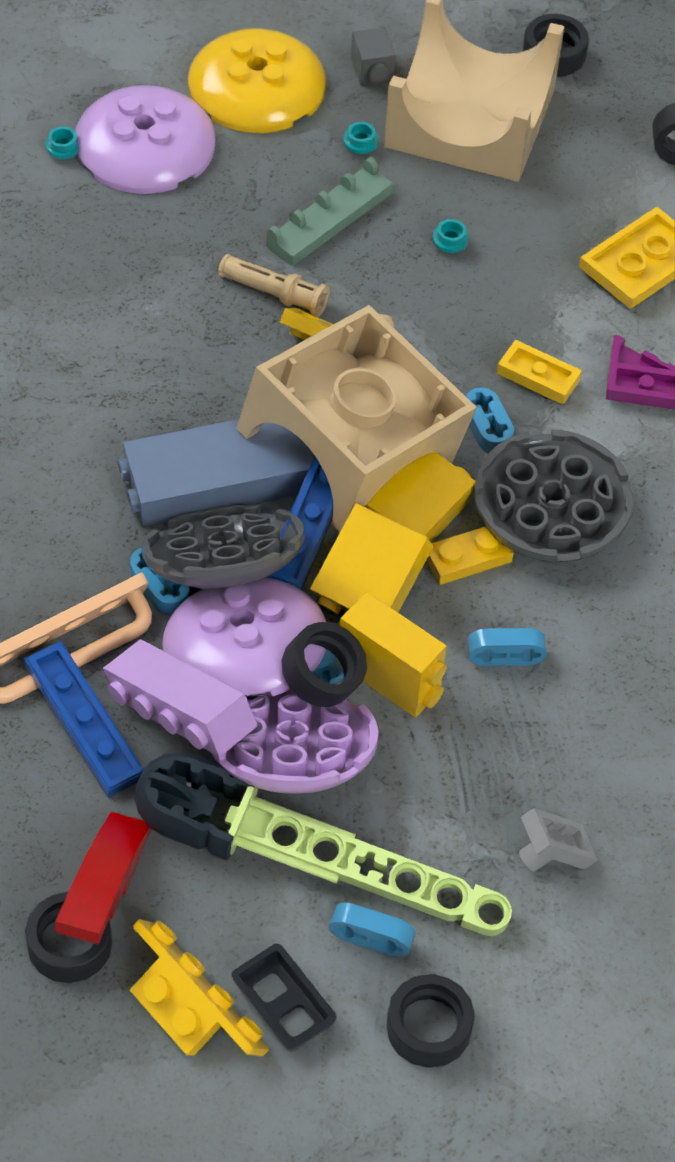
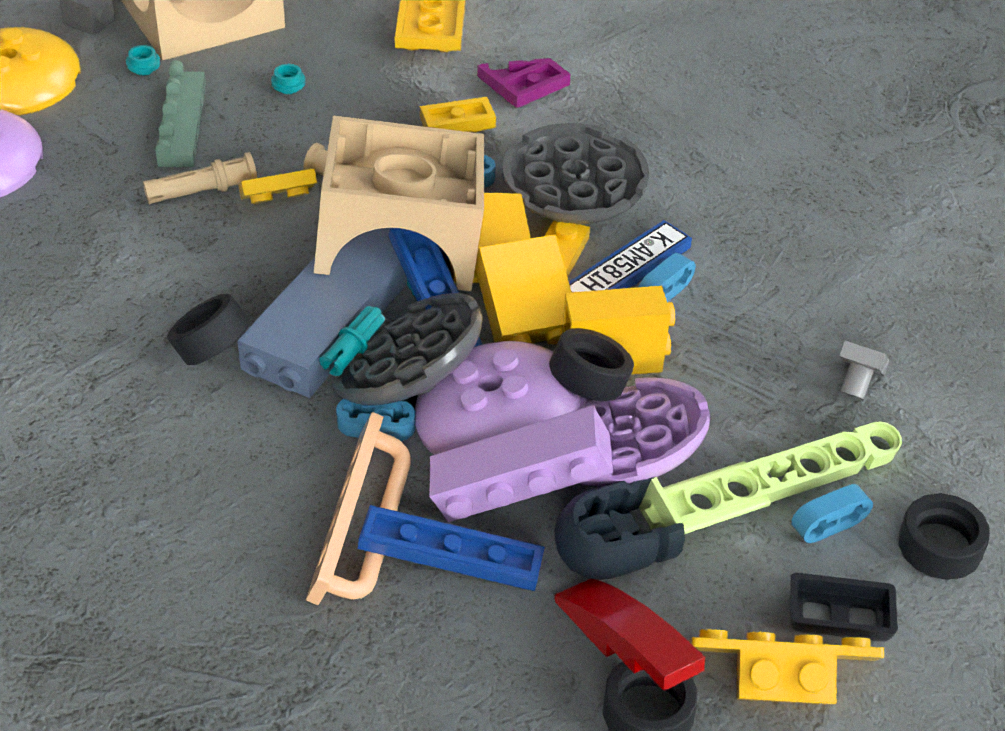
camera: 45 degrees left, 10 degrees down
(118, 417) = (208, 329): none -> black tyre
(200, 505) = (352, 340): none -> teal axle
(500, 609) = (634, 260): none -> tile

